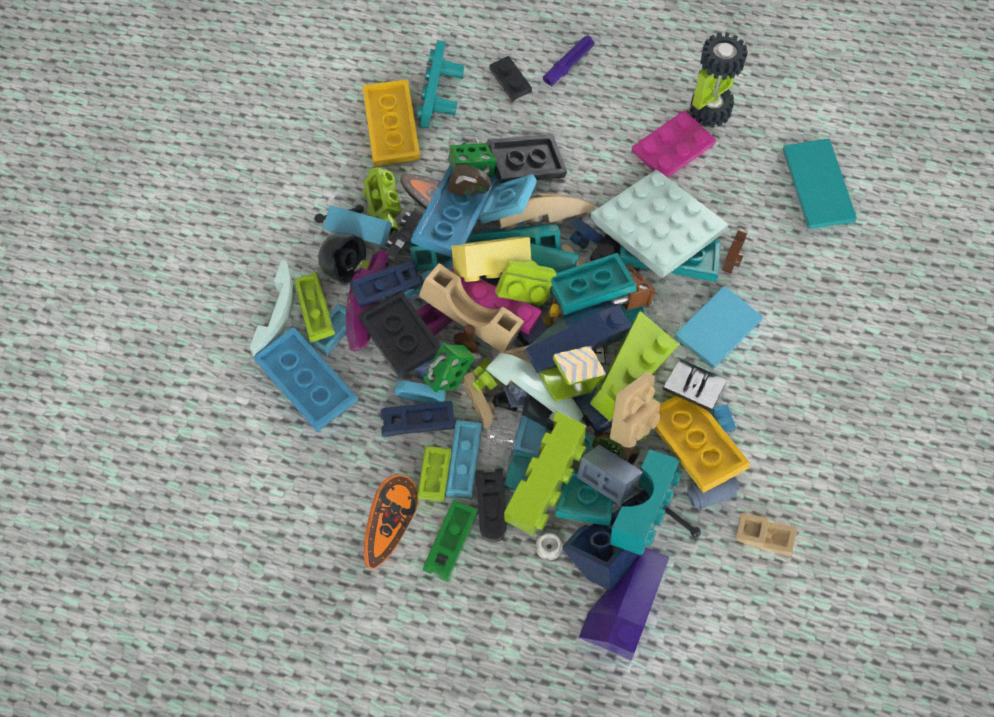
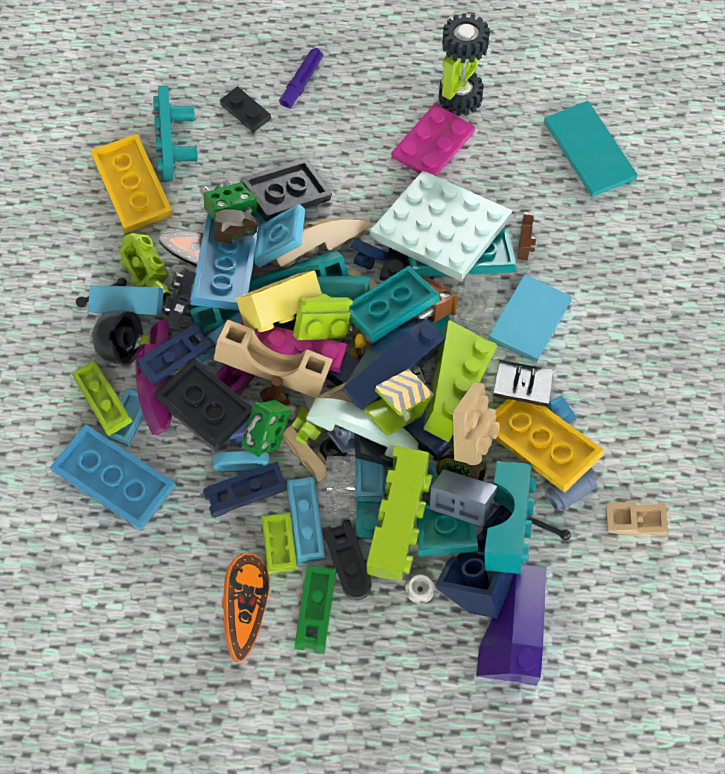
camera: 15 degrees left, 0 degrees up
(266, 335) = (58, 440): light aqua slope -> none

